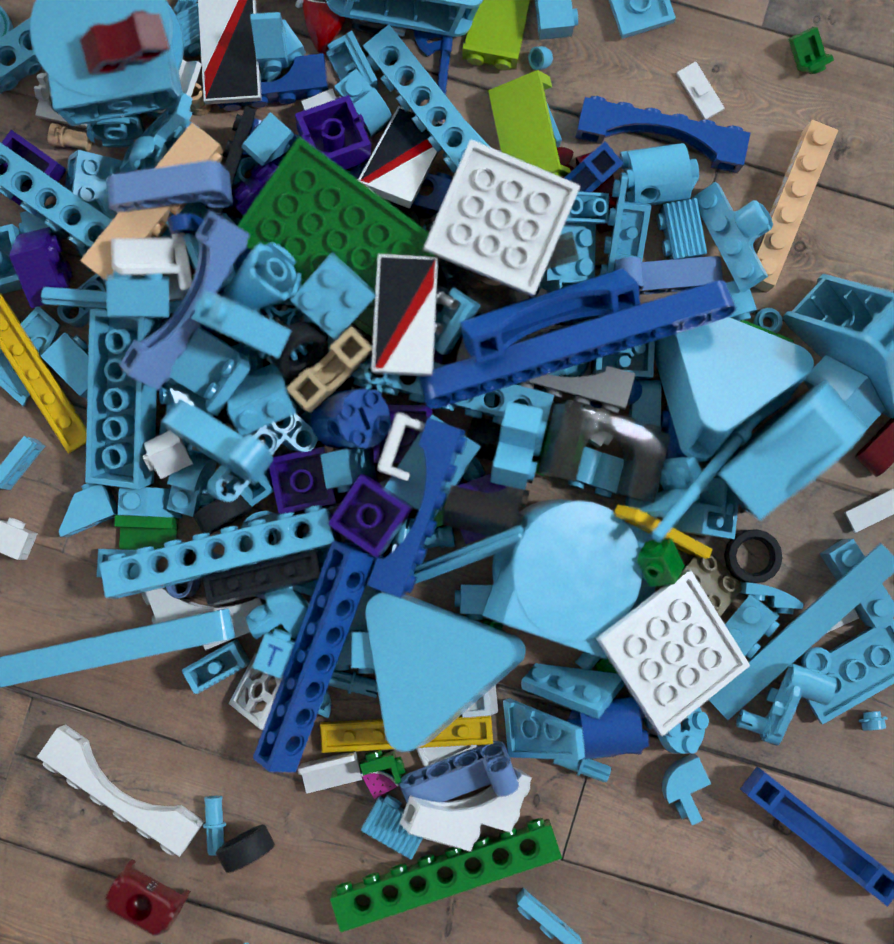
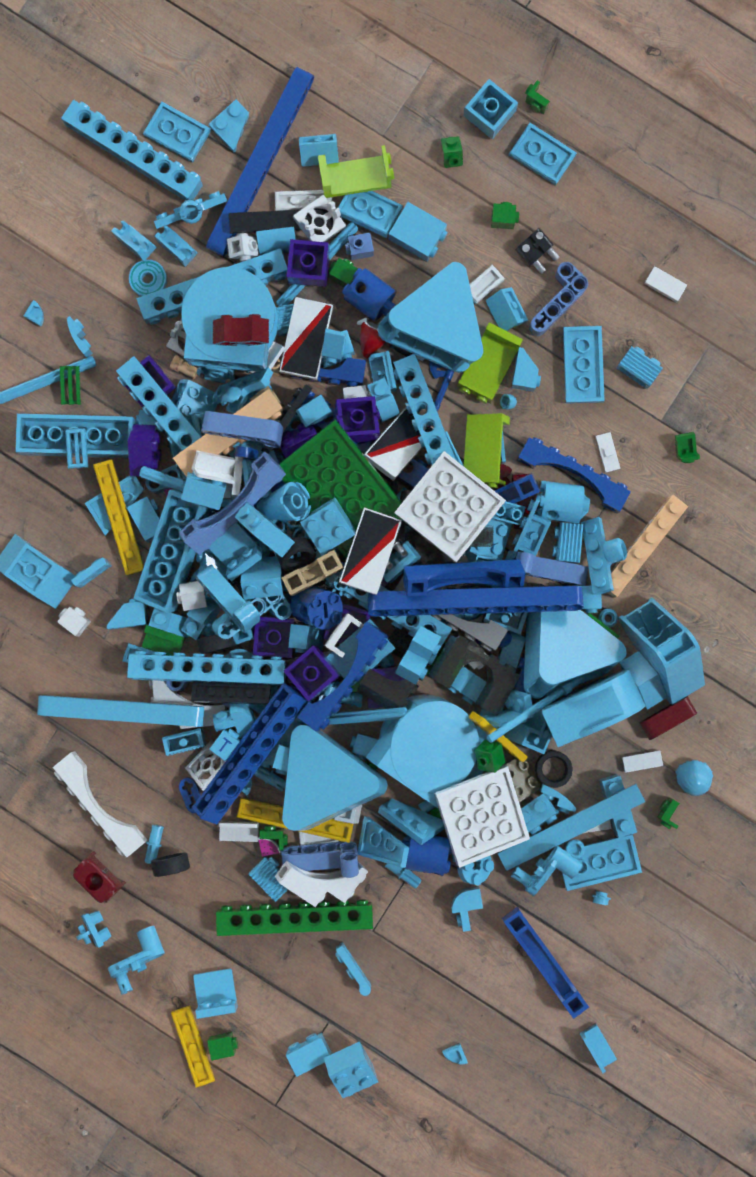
camera: 10 degrees right, 0 degrees up
(240, 740) = (186, 795): none -> blue beam

